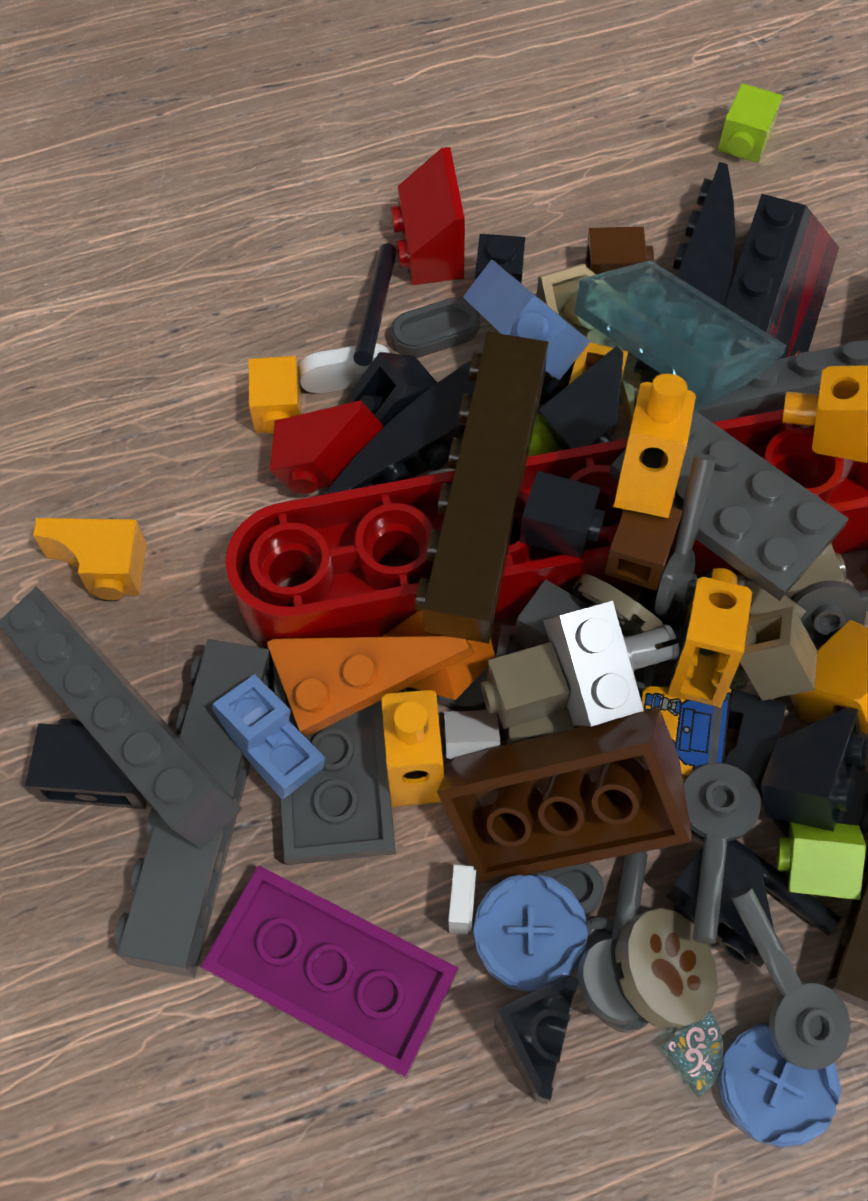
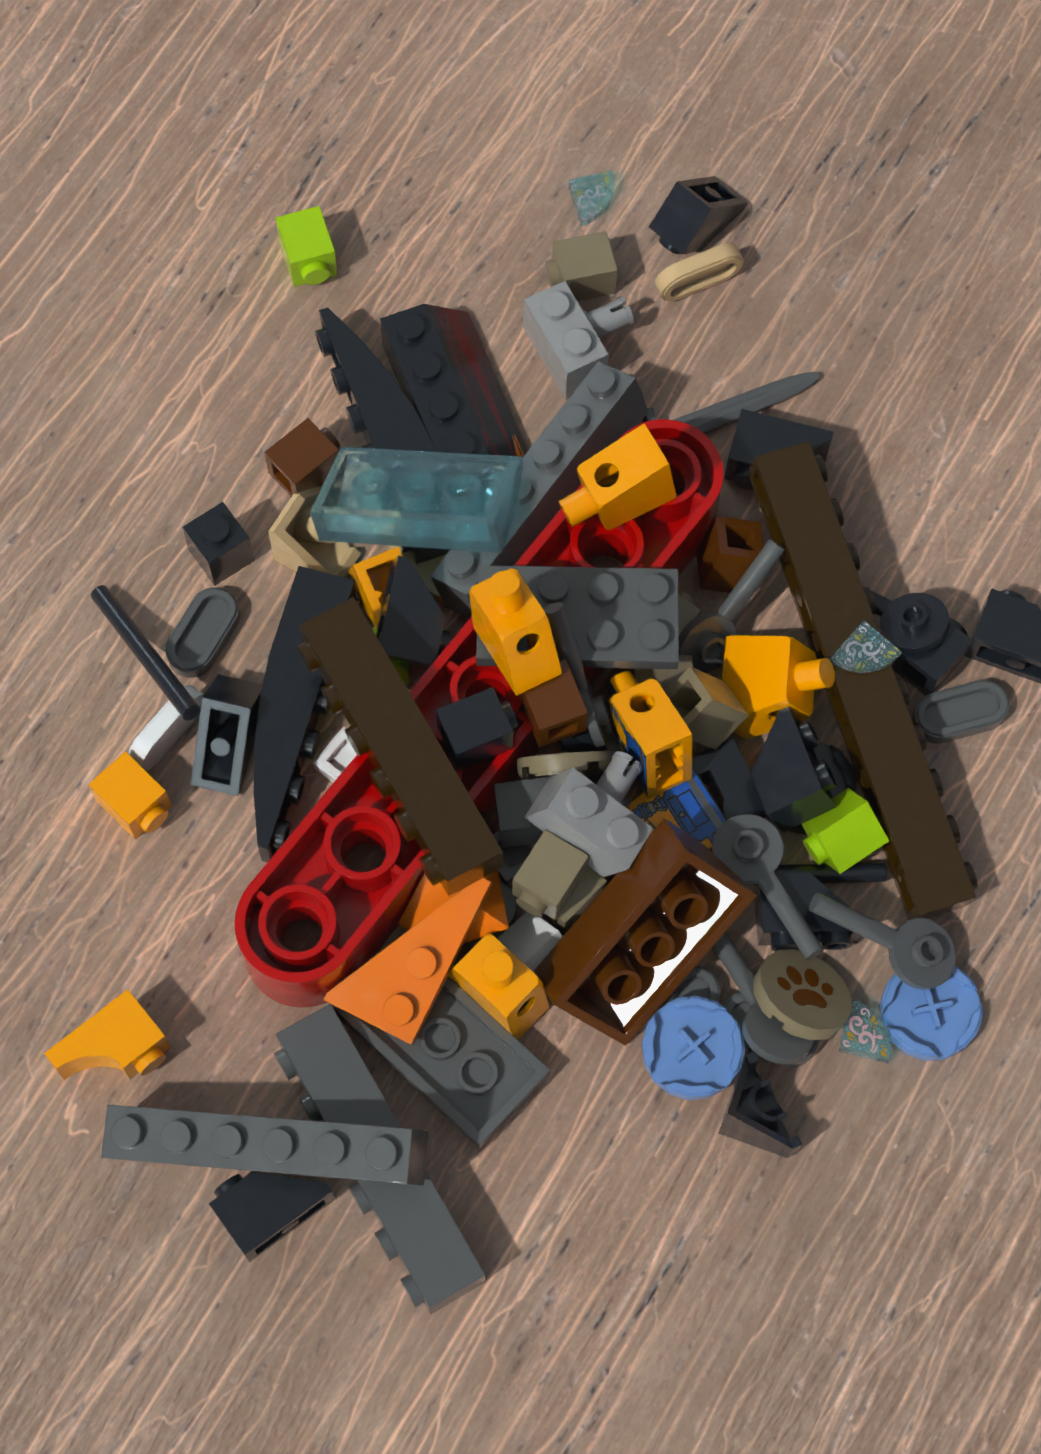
camera: 45 degrees left, 5 degrees up
(266, 737) = (390, 1069): medium blue slope -> none
(320, 444) = (215, 811): red slope -> none
(331, 970) = (578, 1191): magenta plate -> none
(431, 222) = (124, 542): red slope -> none
(462, 899) = (627, 1065): white tile -> none
(522, 314) = (288, 578): medium blue slope -> none

